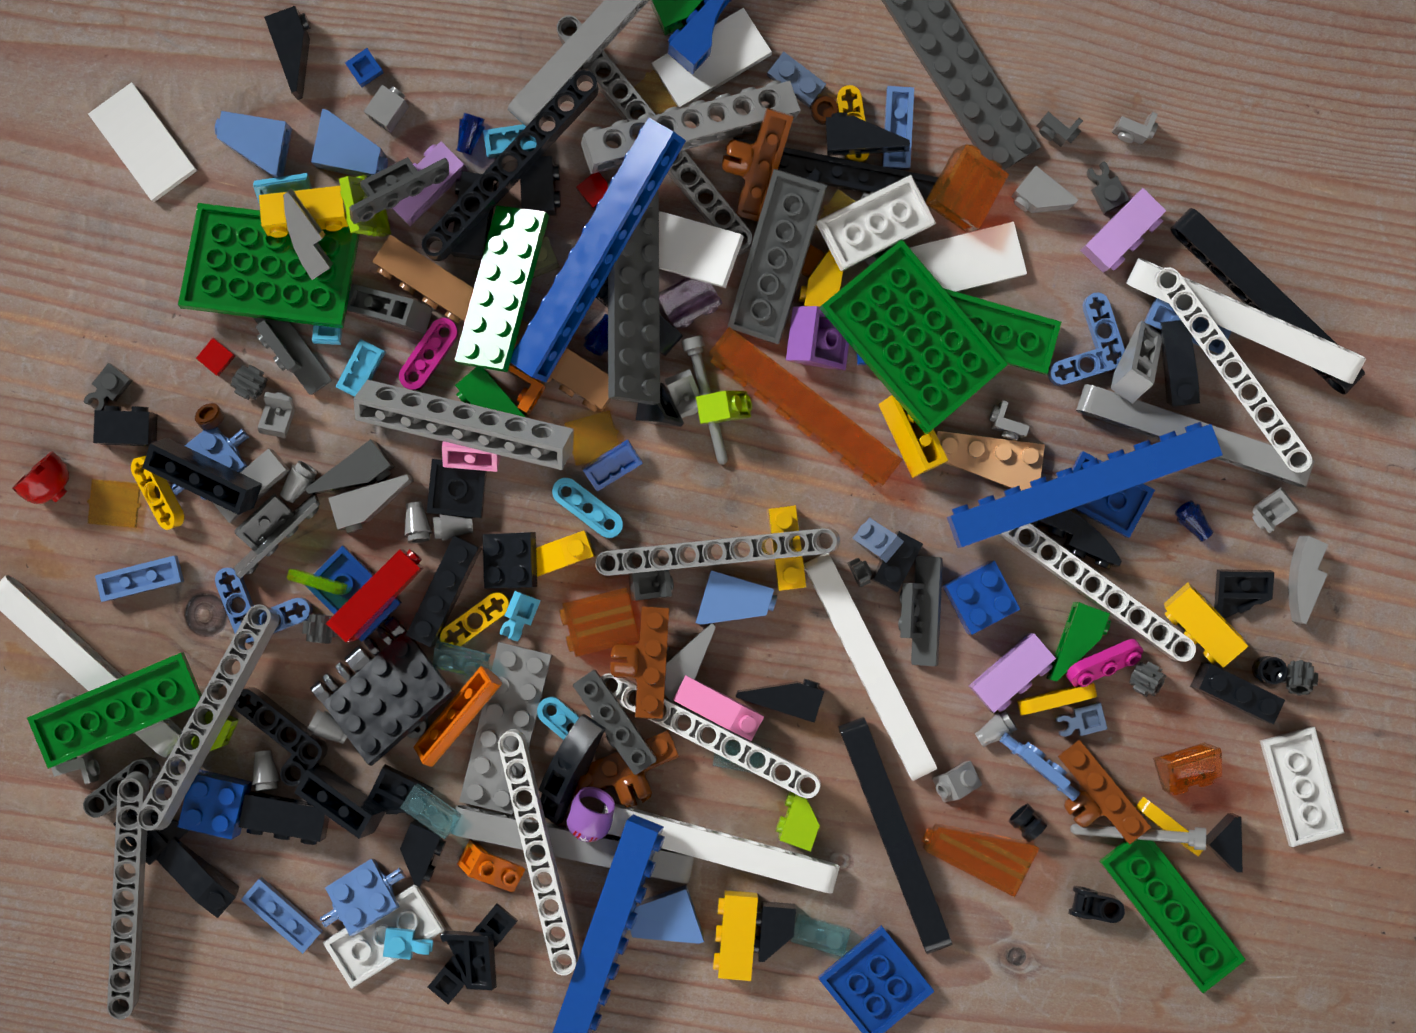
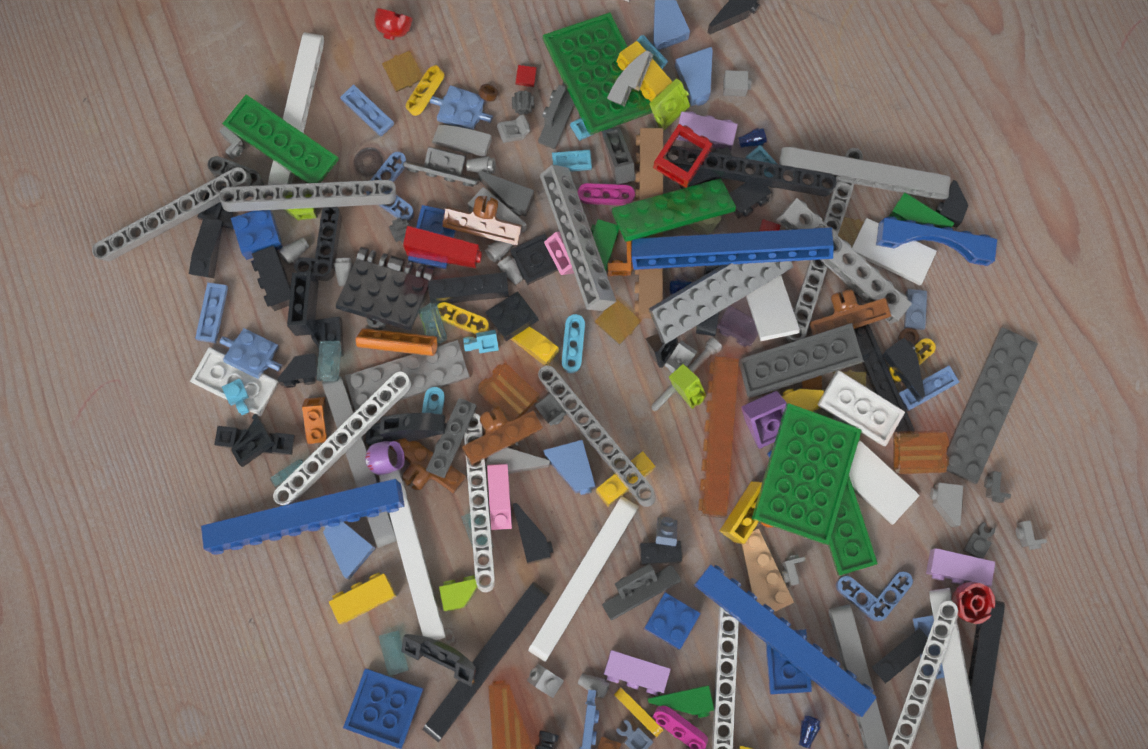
camera: 60 degrees right, 10 degrees down
(109, 384) = (471, 27): dark grey plate -> none
(125, 427) = (452, 50): black brick -> none
(202, 475) = (451, 107): black brick -> none
(317, 581) = (428, 210): clear neon green tile -> none
(364, 67) = (751, 57): blue plate -> none
(373, 525) = (482, 222): none -> plate
(395, 184) = (693, 111): dark grey bracket -> none
(456, 260) = (673, 171): none -> red window
(536, 938) = (281, 476): none -> clear light blue beam
(612, 465) = (608, 342): blue plate -> none
(776, 928) = (381, 620): black slope -> none
(856, 883) = (441, 653): none -> black slope
(860, 571) = (640, 534): dark grey plate -> none
(1081, 538) = (751, 663): black slope -> none
(1138, 363) = (883, 628): light grey slope -> none
(1173, 243) = (974, 602): none -> red cylinder

